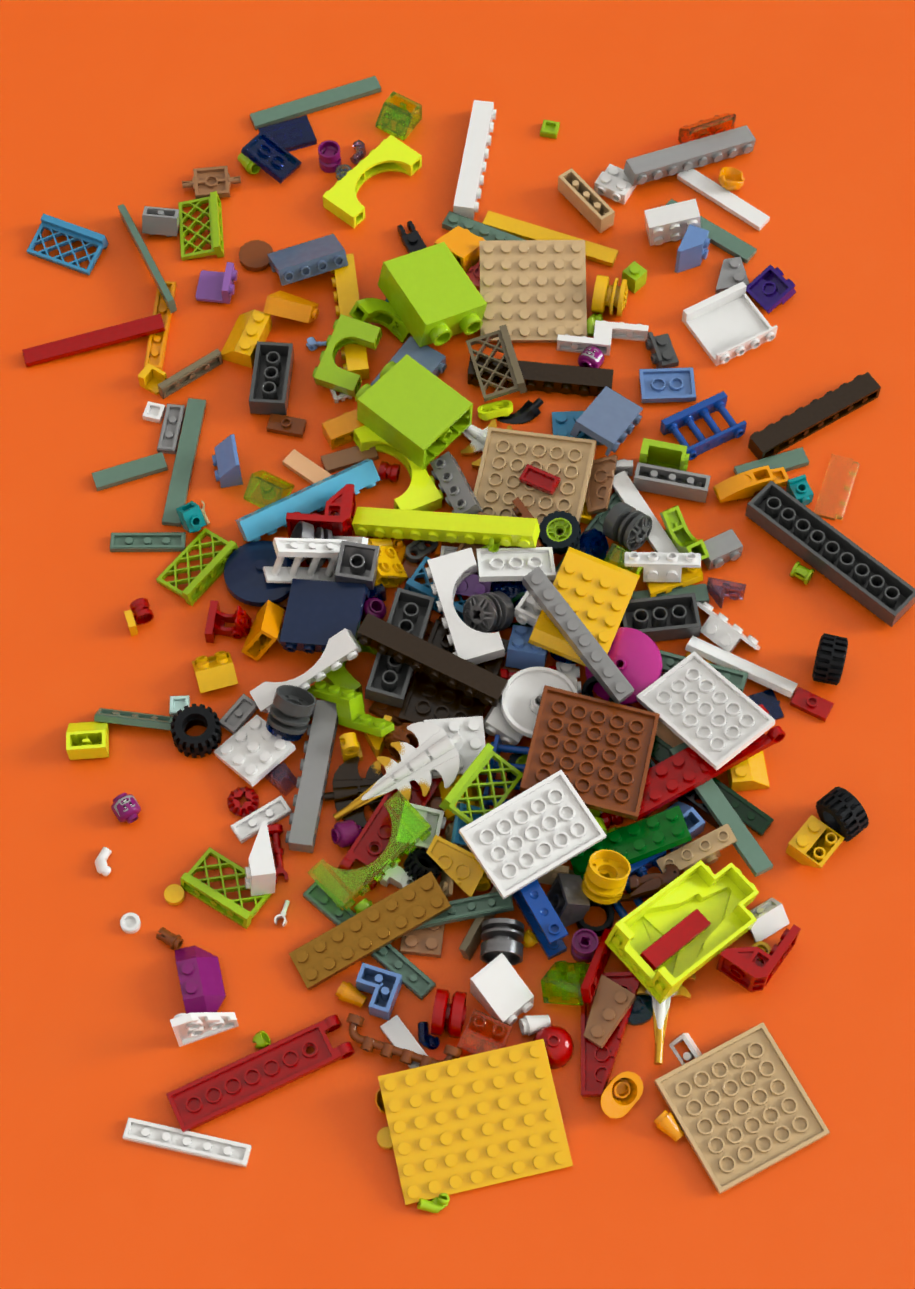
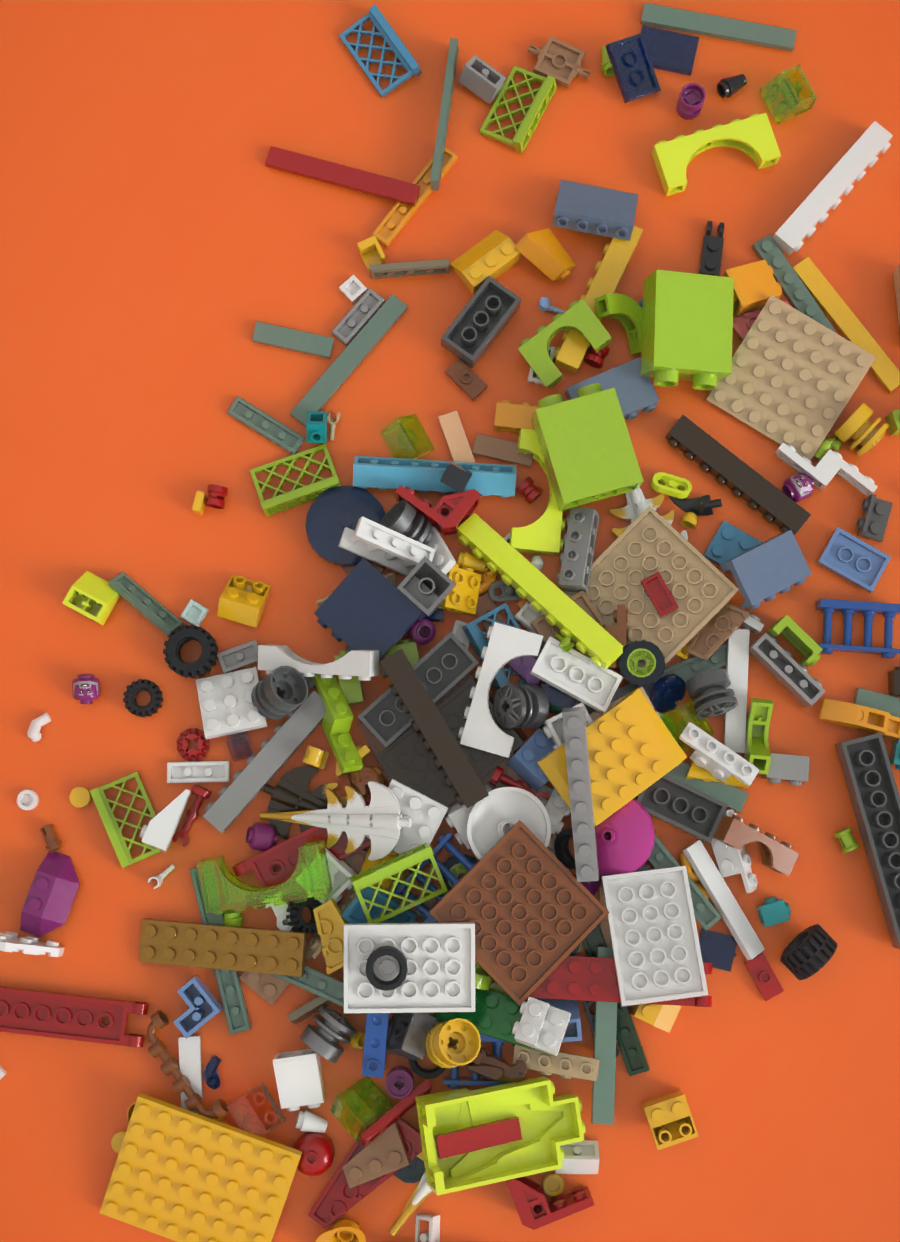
camera: 30 degrees right, 20 degrees up
(178, 800) = (130, 698): none -> black tyre
(216, 623) = (276, 550): red tile -> none
(217, 286) = (493, 184): medium lavender bracket -> none
(227, 462) = (385, 390): medium blue slope -> none
(254, 255) = (550, 170): dark orange tile -> none
(261, 1039) = (71, 988): lime hinge -> none
(264, 630) = (312, 587): light orange slope -> none
(326, 482) = (456, 476): none -> black panel
(342, 170) = (693, 124): clear light blue tile -> none
(350, 994) = (168, 988): light orange cone -> none
(351, 133) = (731, 85): none -> black cone
(360, 151) = (726, 112): arm -> none
(376, 357) = (596, 359): none -> red wheel
(434, 1205) = (123, 1228): lime arm -> none
(451, 1013) = (240, 1071): red wheel -> none
(510, 357) = (716, 449): dark tan fence -> none
(517, 823) = (386, 985): none -> black tyre
(526, 425) = (689, 520): none -> yellow hinge
(665, 821) = (541, 1026): none -> white plate
(719, 588) = (756, 808): slope -> none
(757, 610) = (774, 854): none -> arch
(784, 653) = (773, 911): none -> teal brick
(842, 813) = (712, 1112): black tyre -> none

